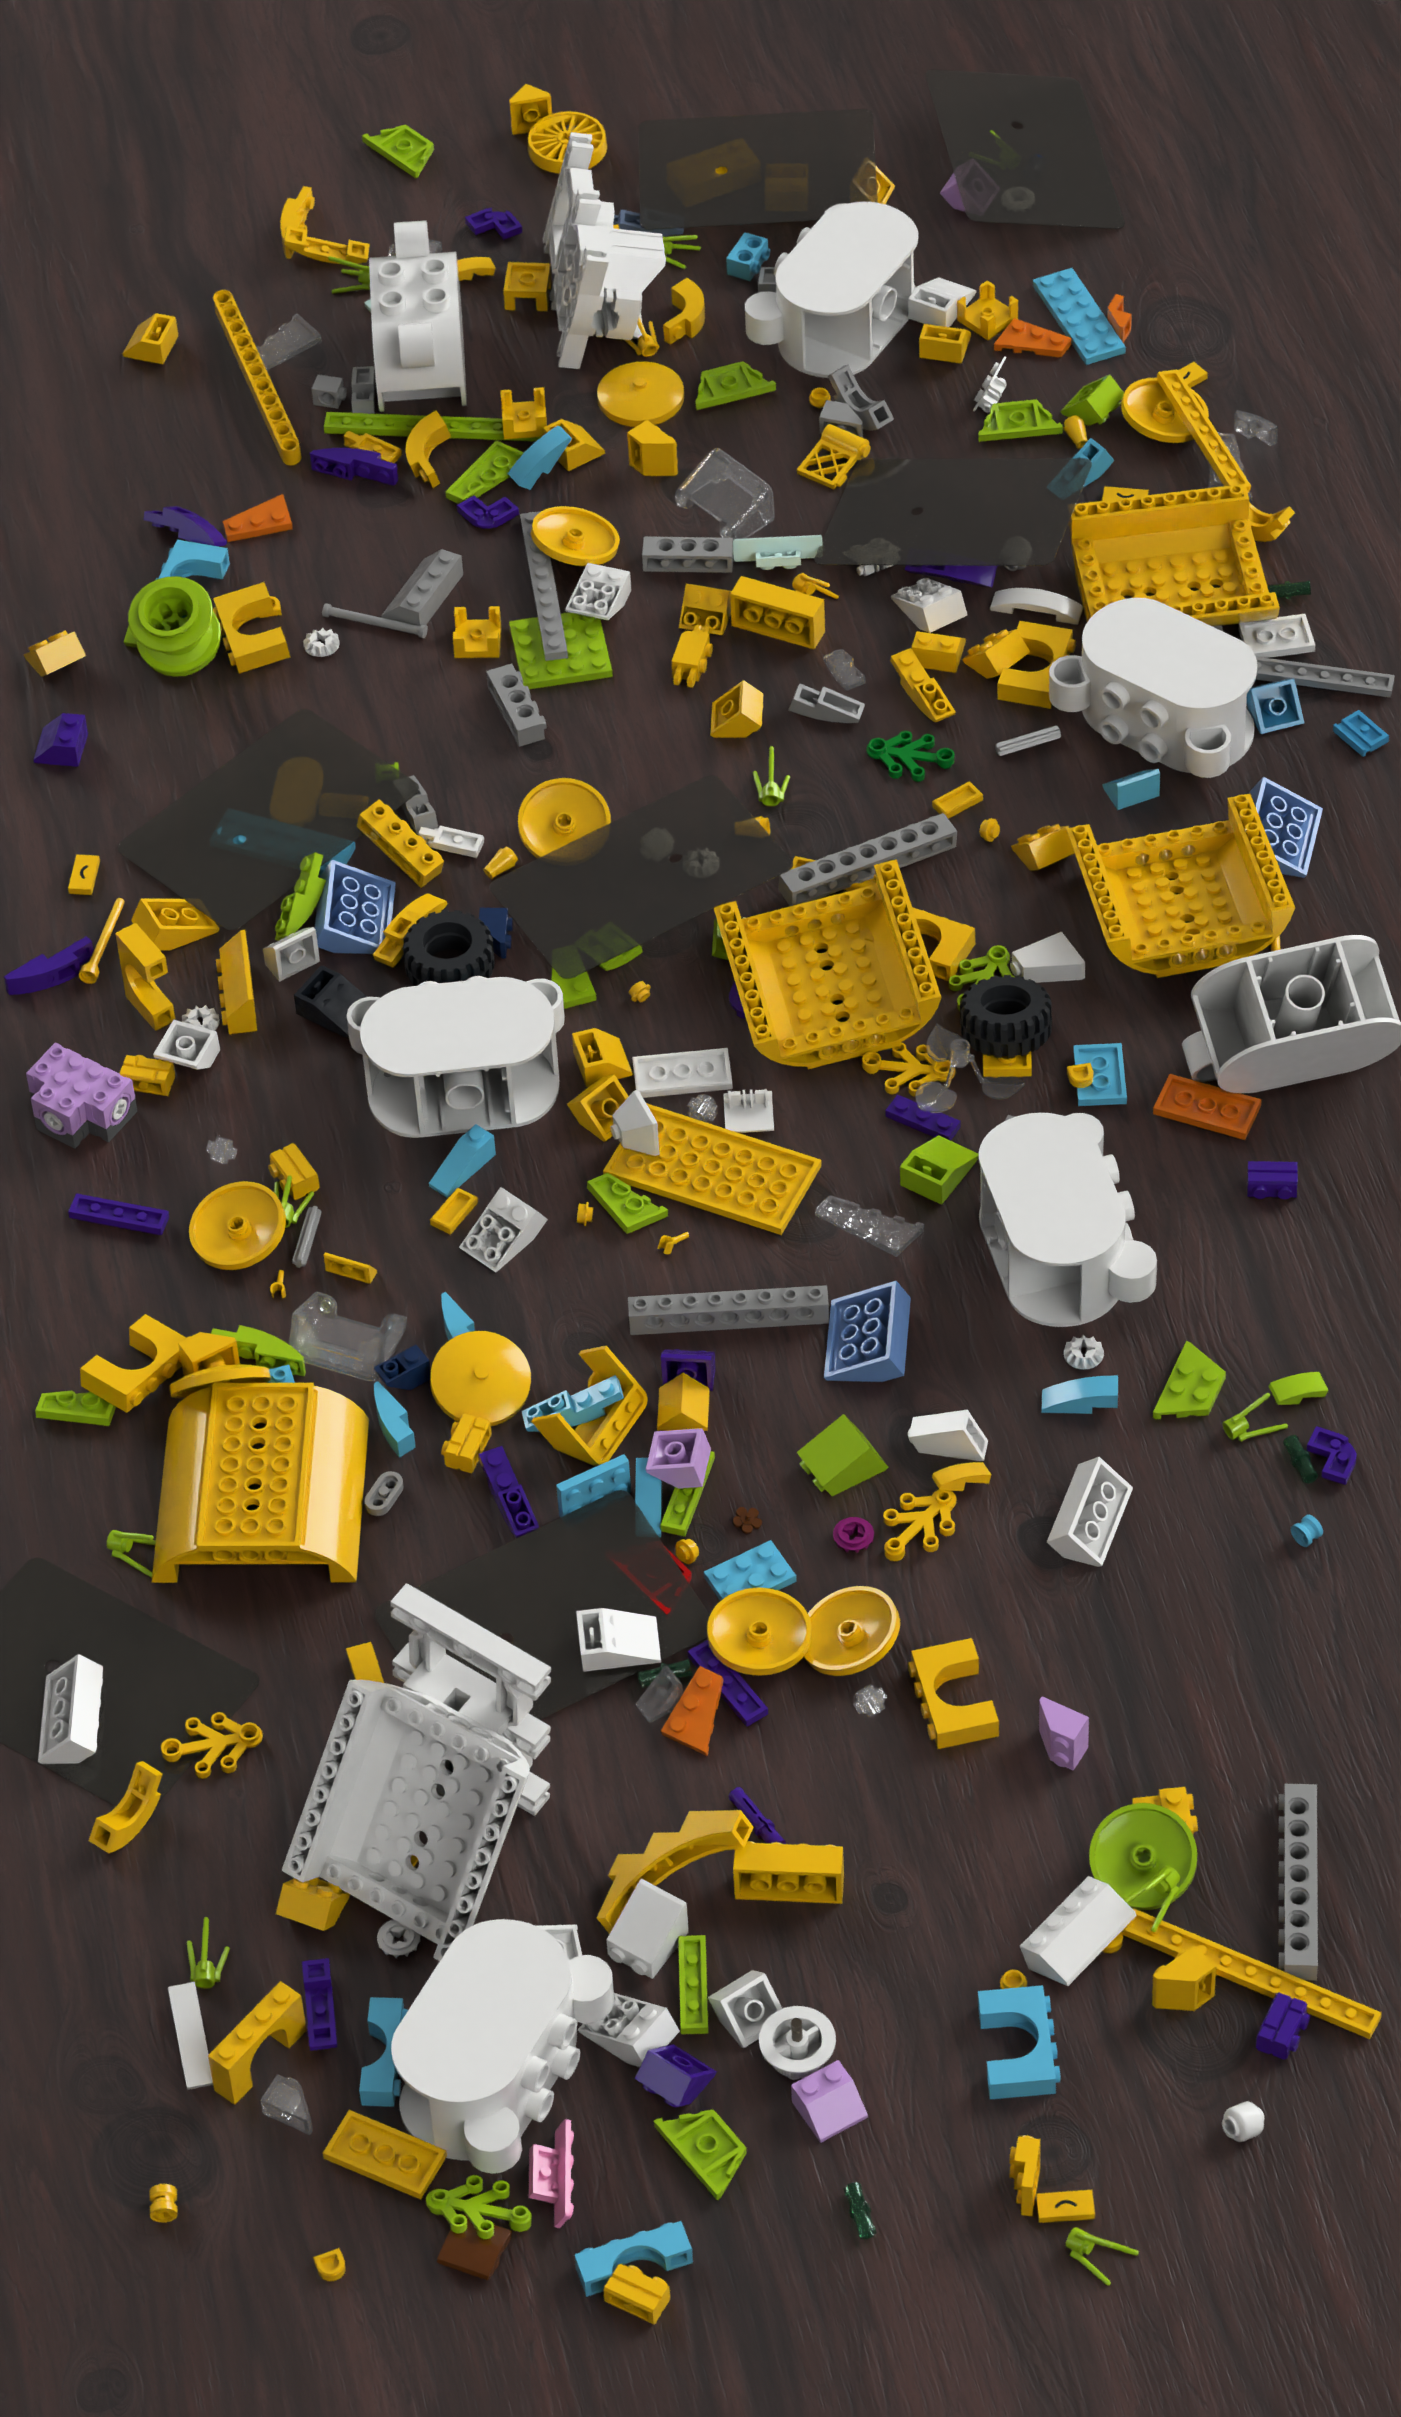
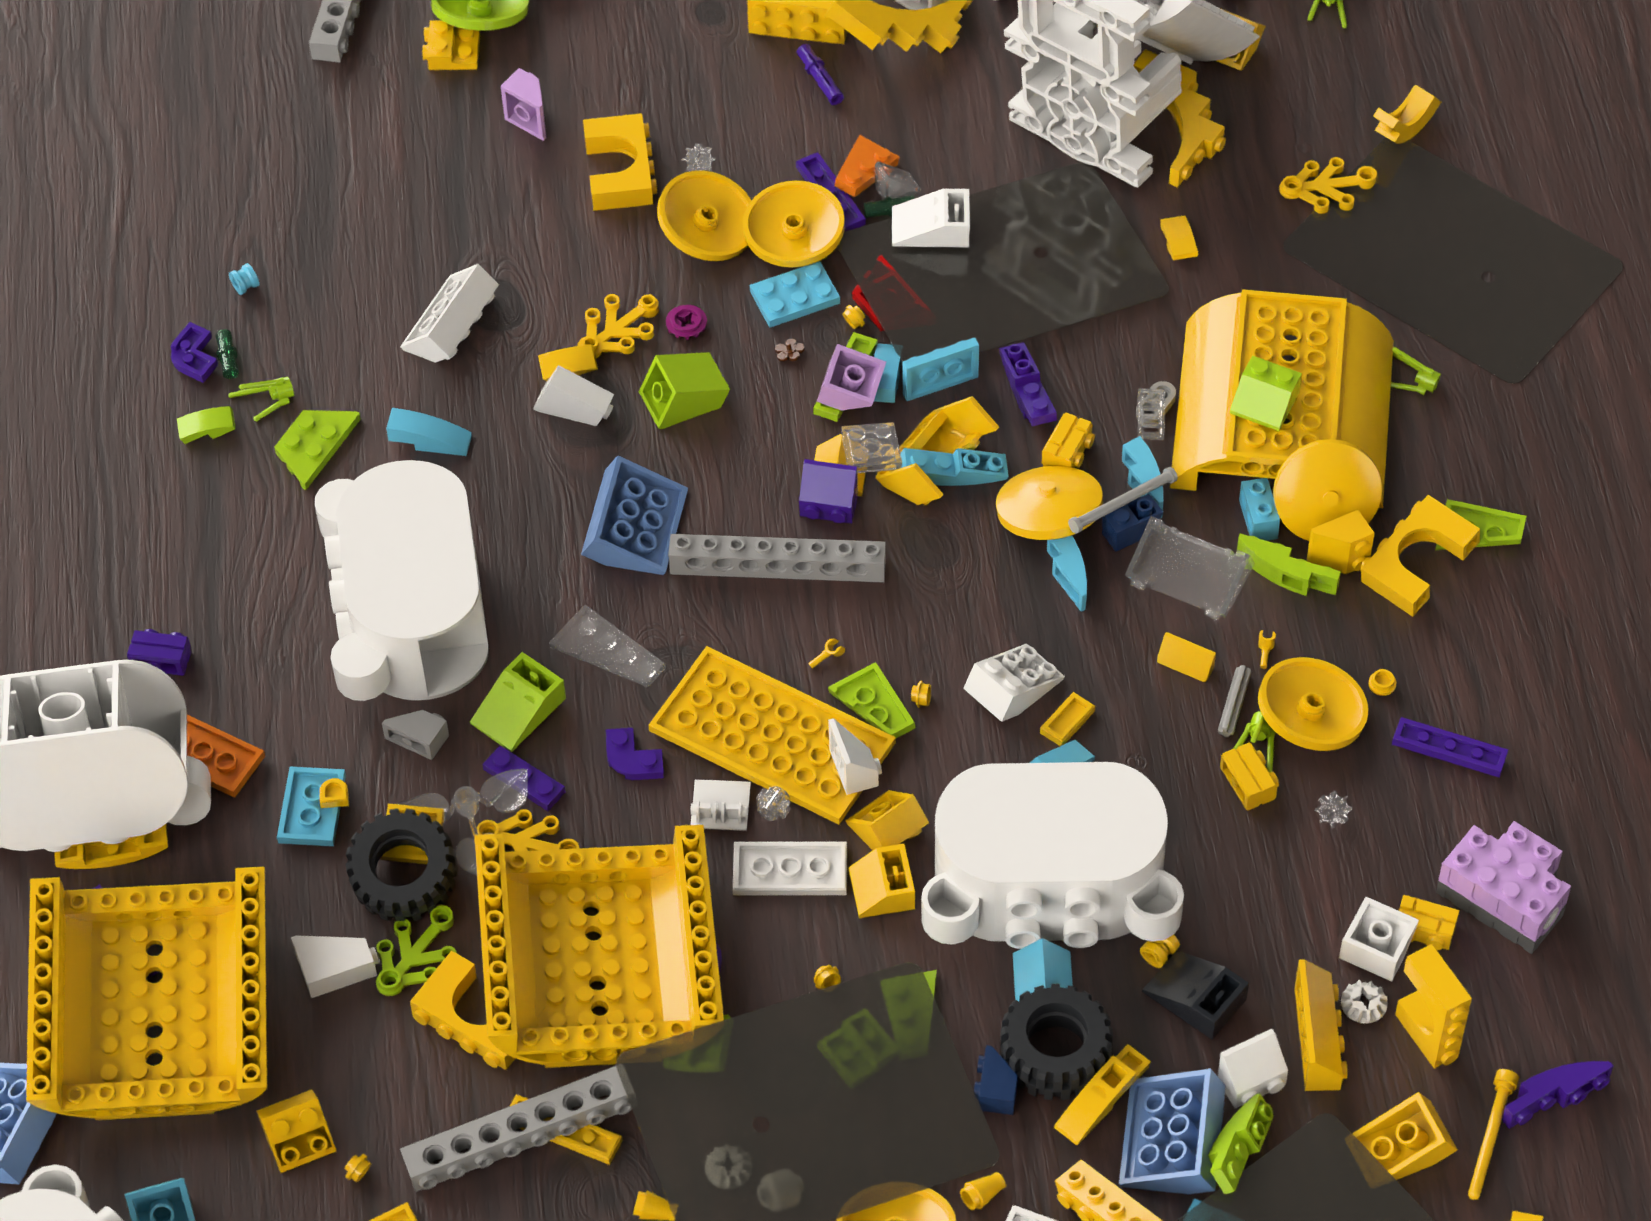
camera: 175 degrees left, 5 degrees up
(71, 1712) = (1466, 215): white slope -> none
(175, 1263) = (1382, 682): none -> yellow plate
(274, 1431) = (1266, 393): none -> lime slope
(388, 1470) = (1152, 396): none -> clear slope
(411, 1366) = (1168, 476): none -> light grey bar
(651, 1395) = (871, 447): none -> clear plate
(835, 1139) = (632, 763): none -> dark purple plate

